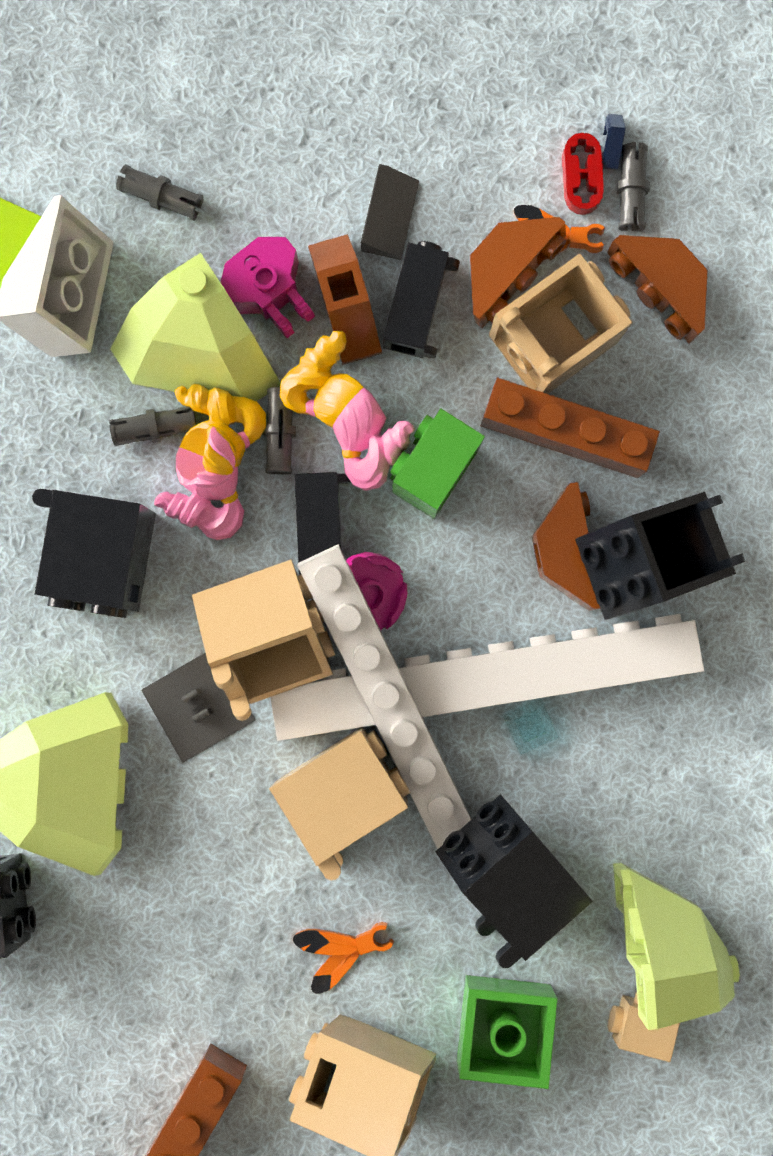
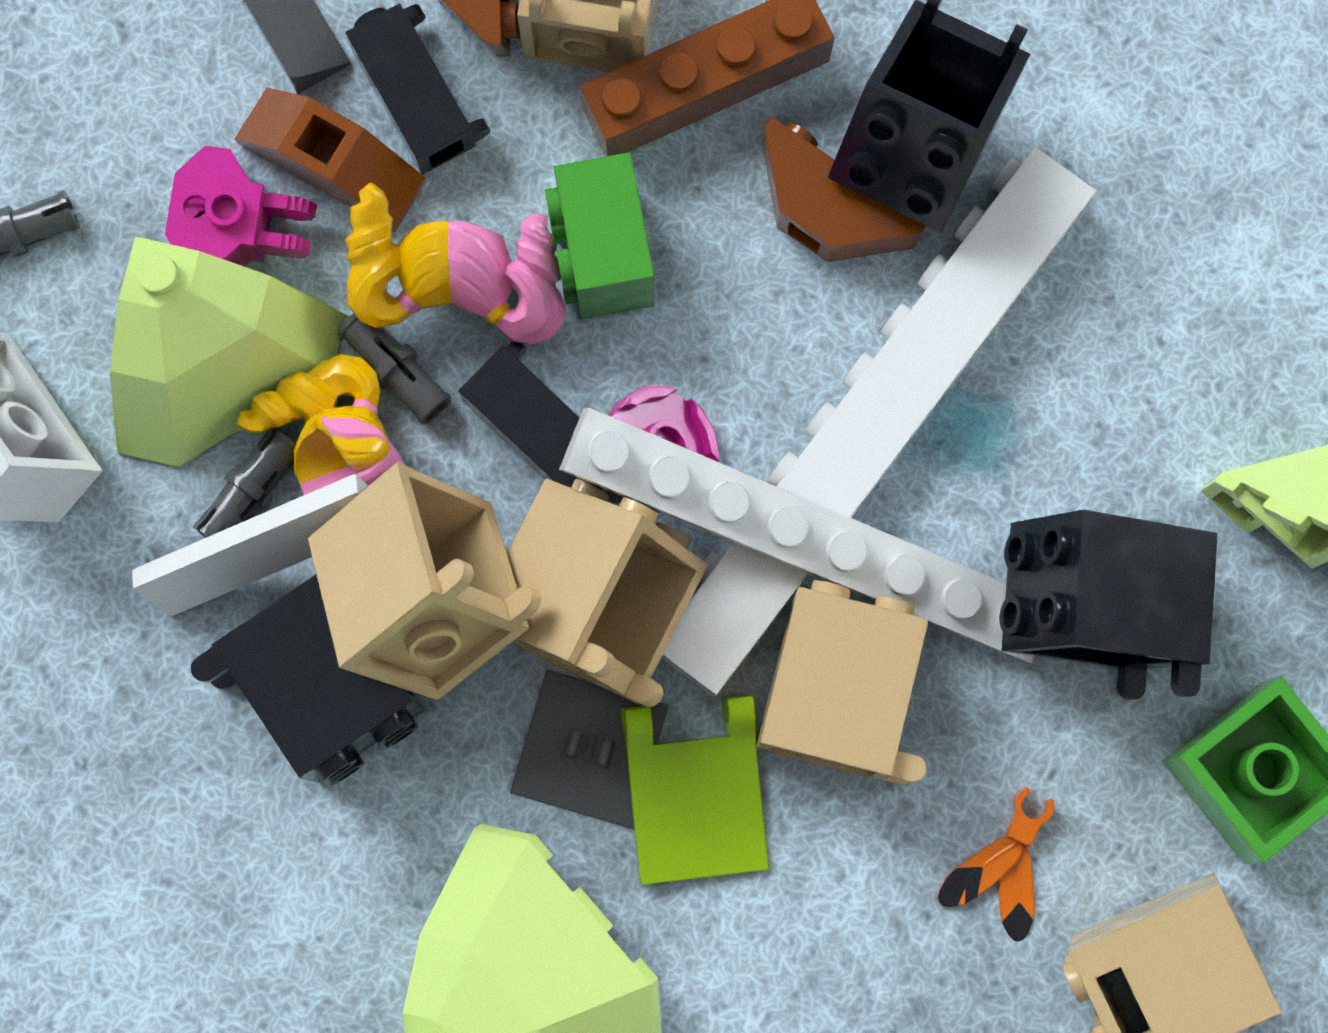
camera: 45 degrees left, 5 degrees down
(129, 461) = (242, 551): none -> white tile
(177, 554) = (418, 583): none -> tan container
(224, 778) = (696, 798): none -> lime flag

